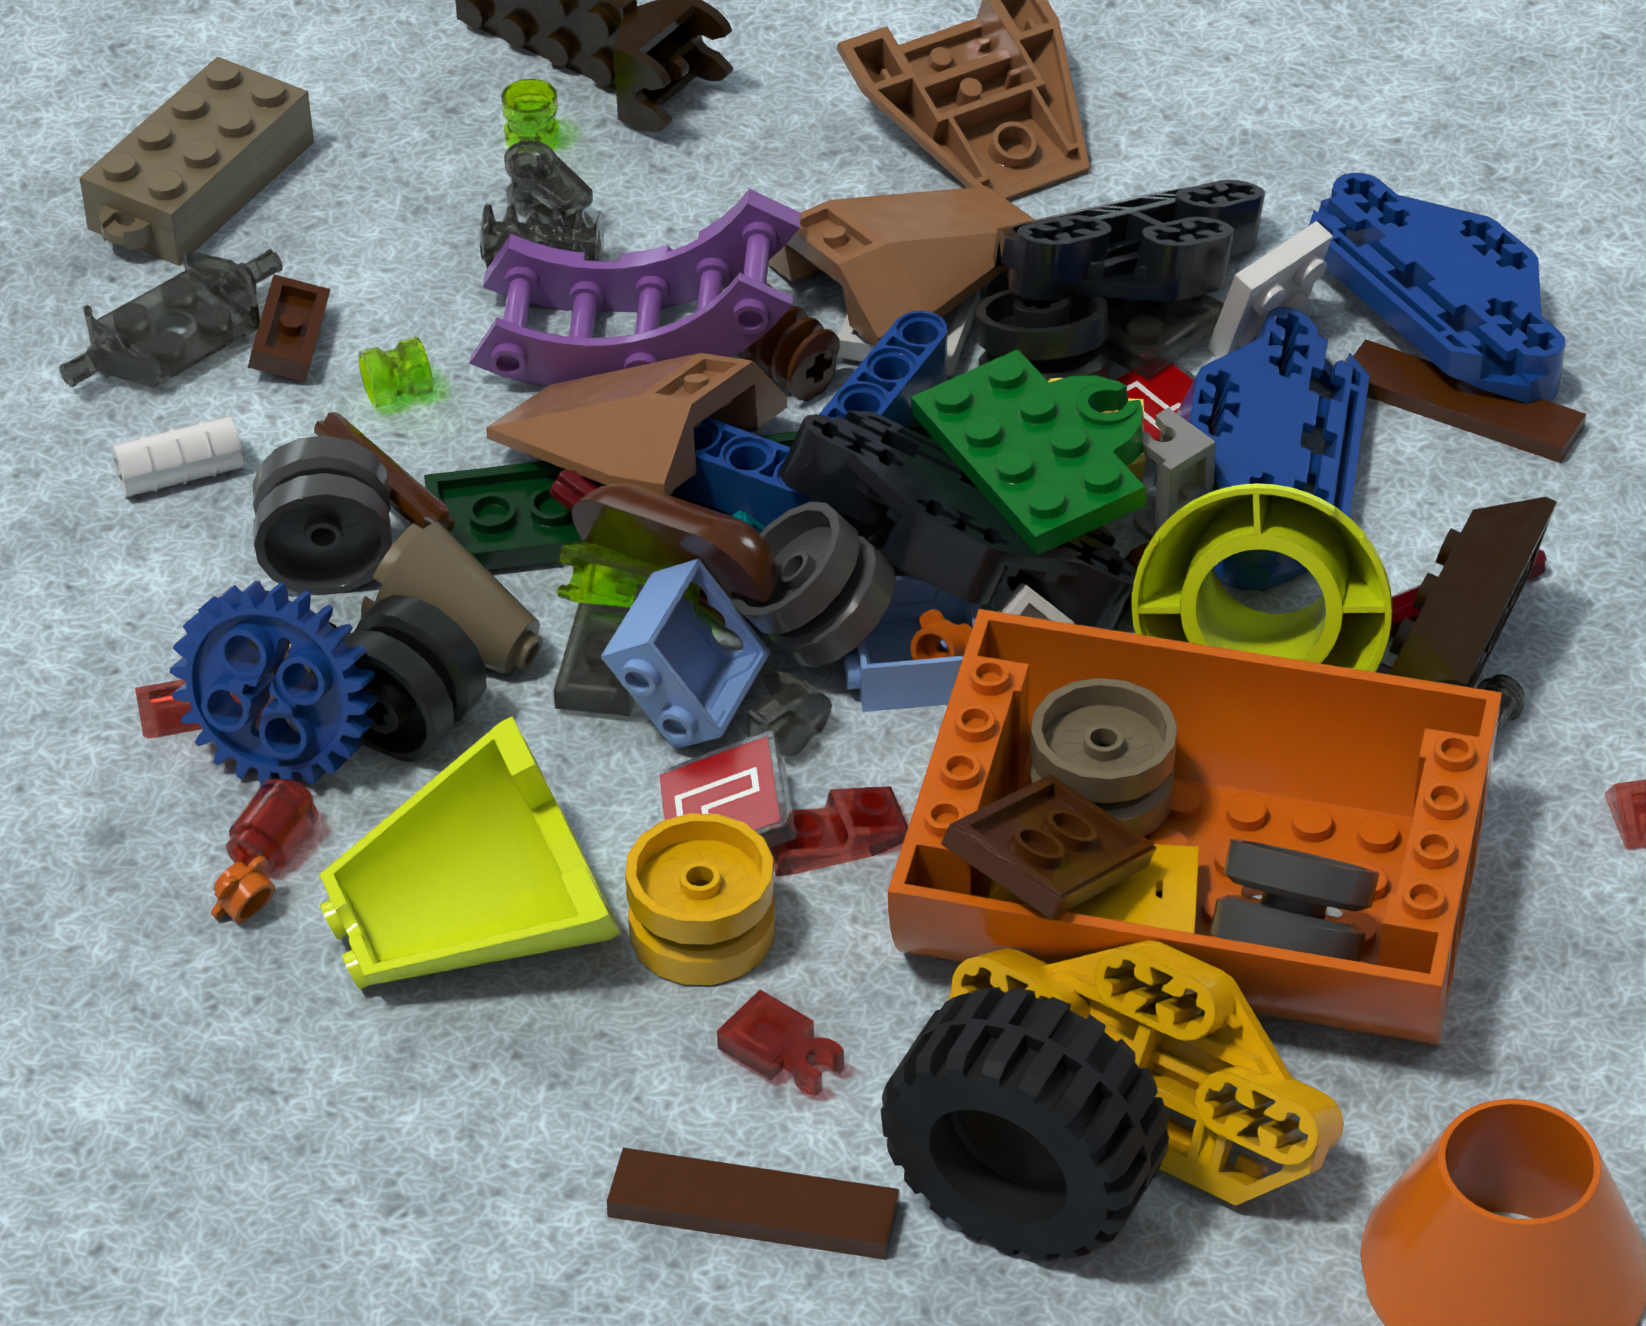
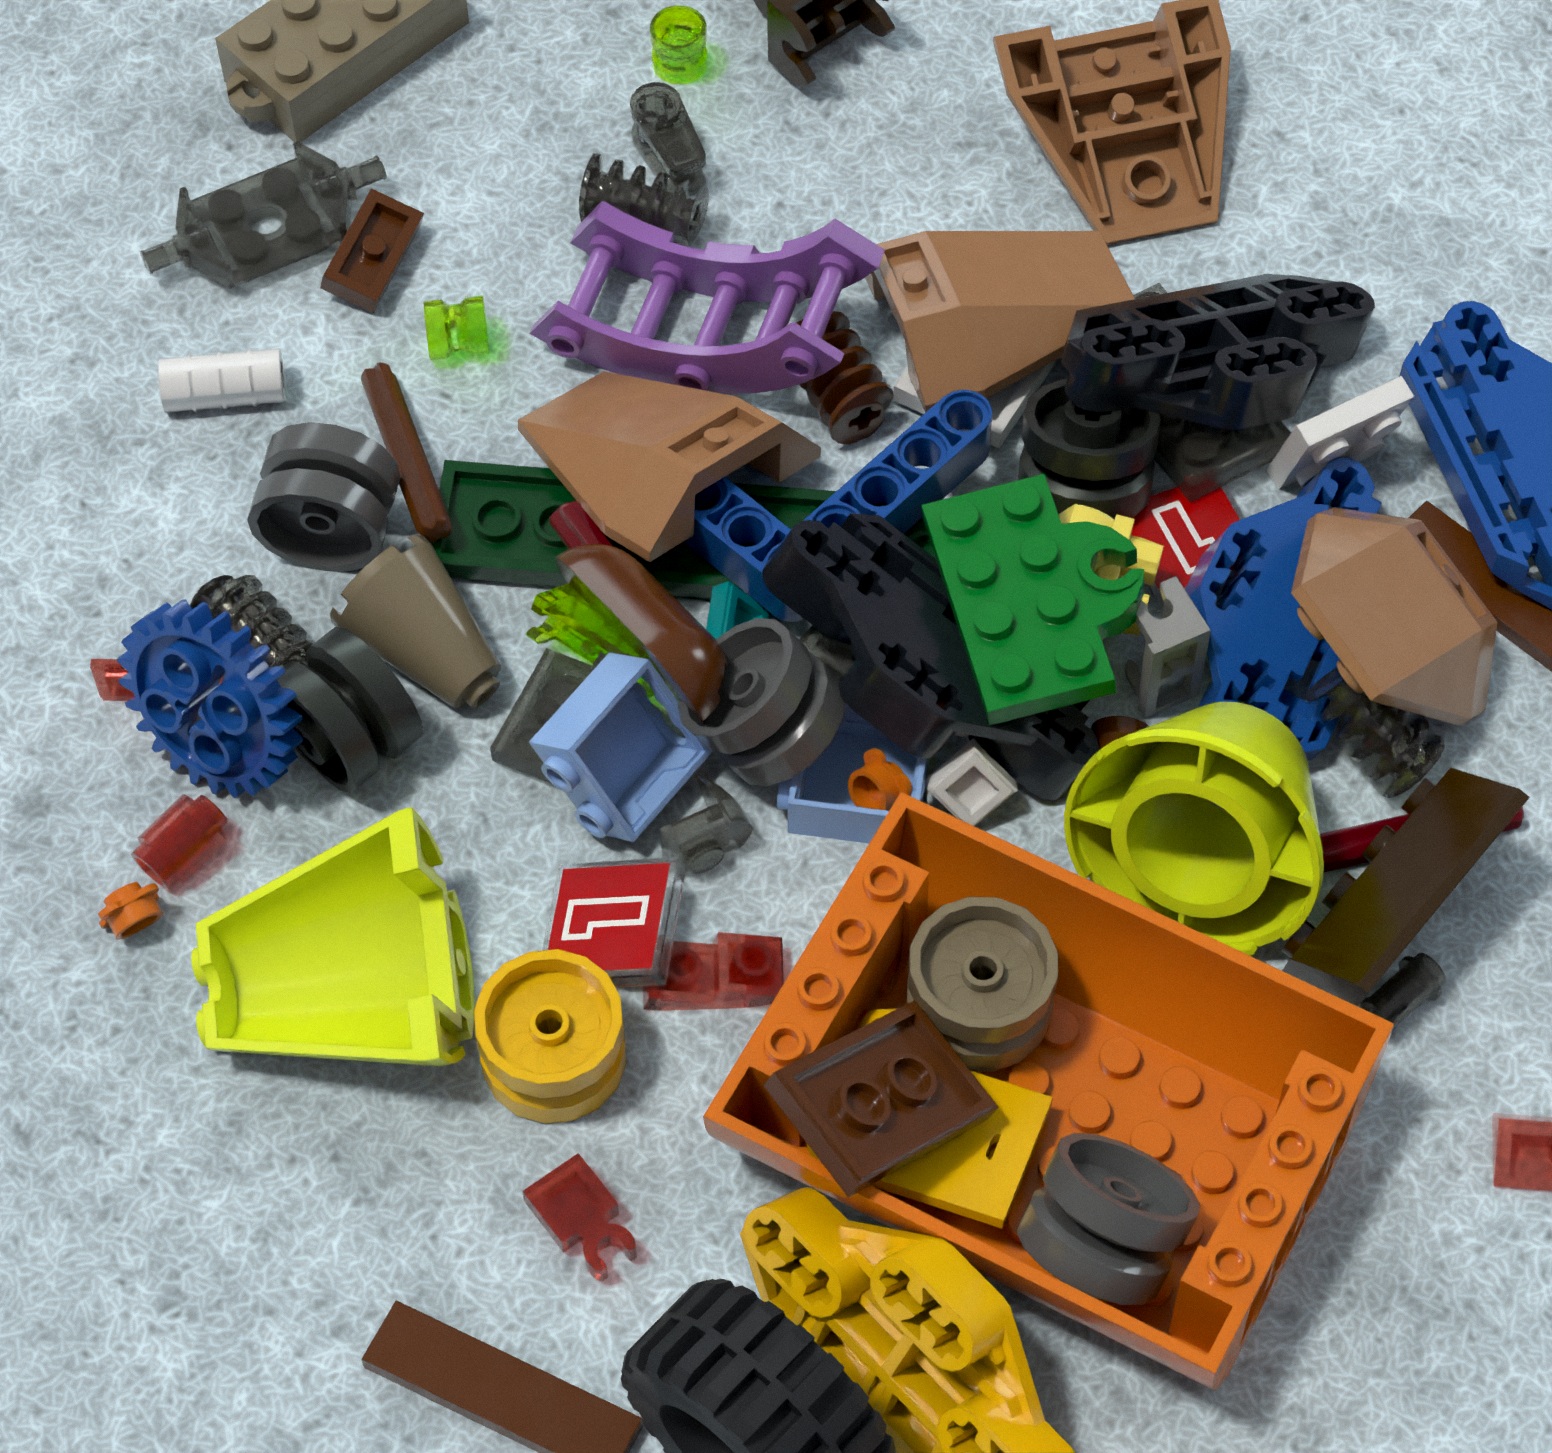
camera: 15 degrees right, 15 degrees up
(1390, 401) = (1395, 613): none -> medium nougat wedge
(1390, 502) = (1385, 731): none -> clear smoke piece

